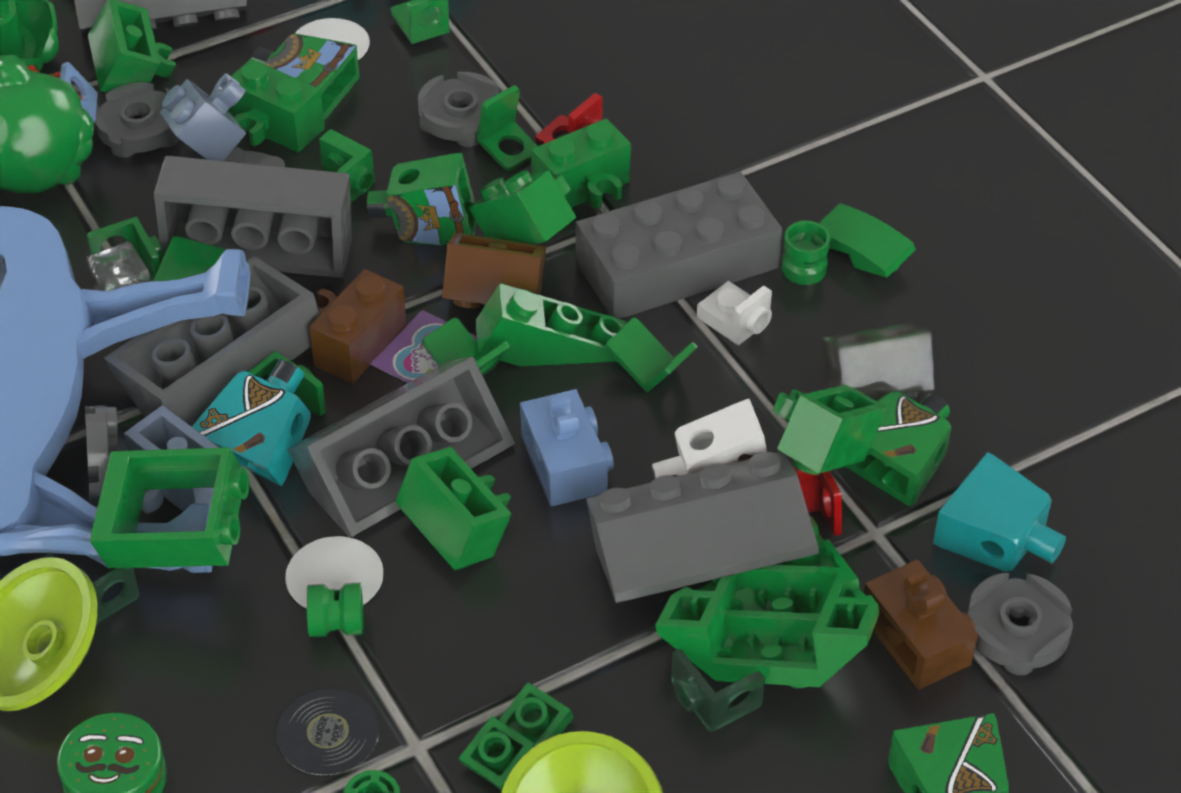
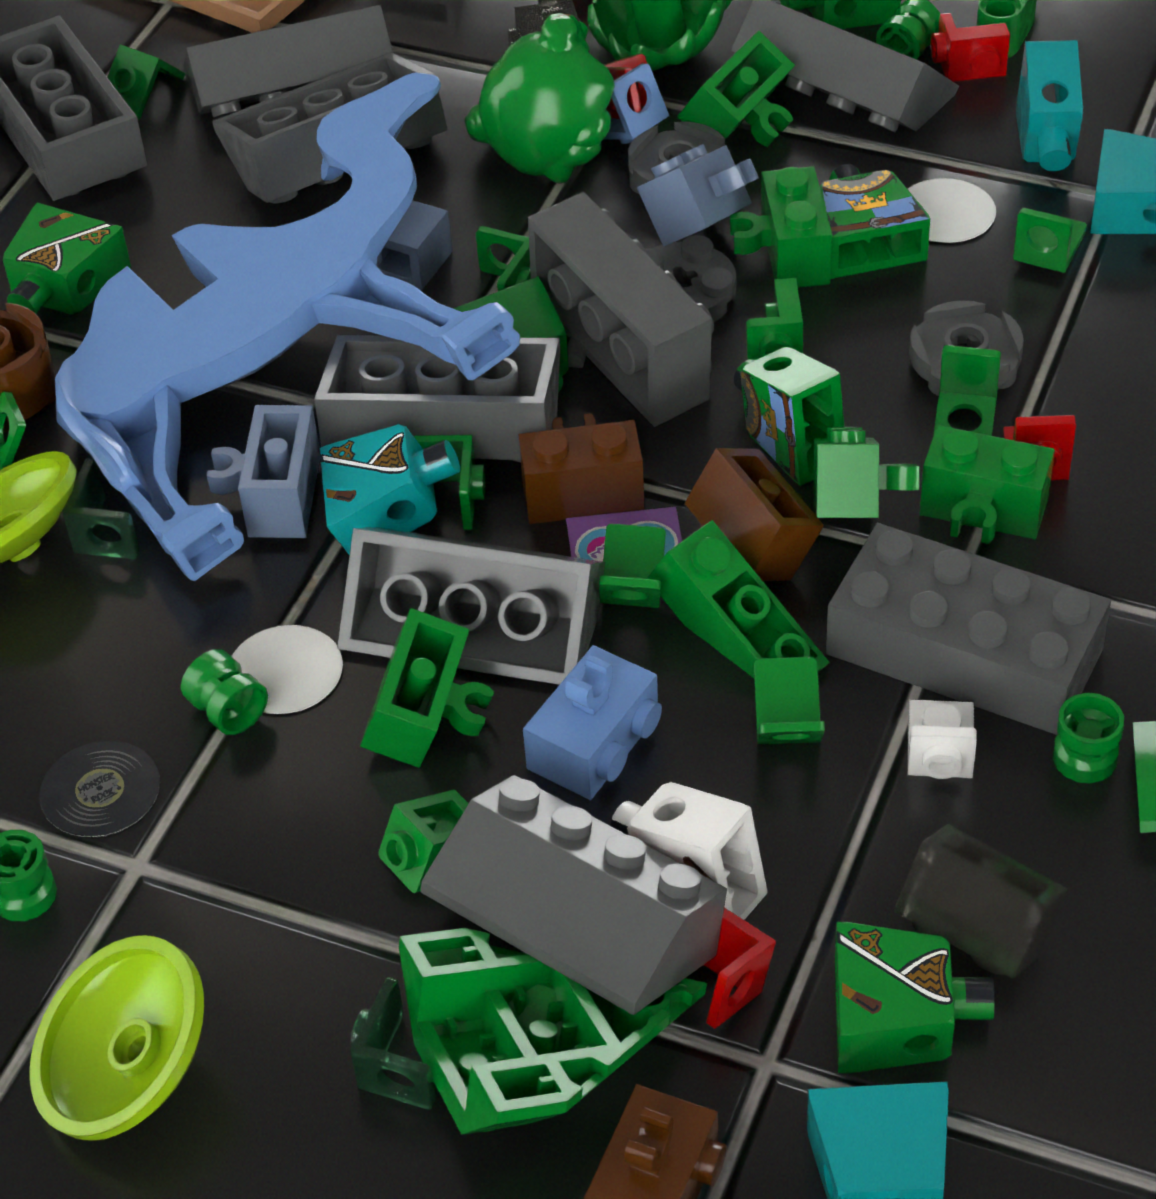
camera: 55 degrees right, 0 degrees up
(101, 440) = (225, 408): dark grey plate -> none
(118, 267) = (473, 277): clear plate -> none
(141, 470) = (183, 446): green window -> none
(522, 726) = (210, 933): green slope -> none
(569, 580) = (418, 833): none -> green bracket
(828, 427) = (790, 904): green brick -> none

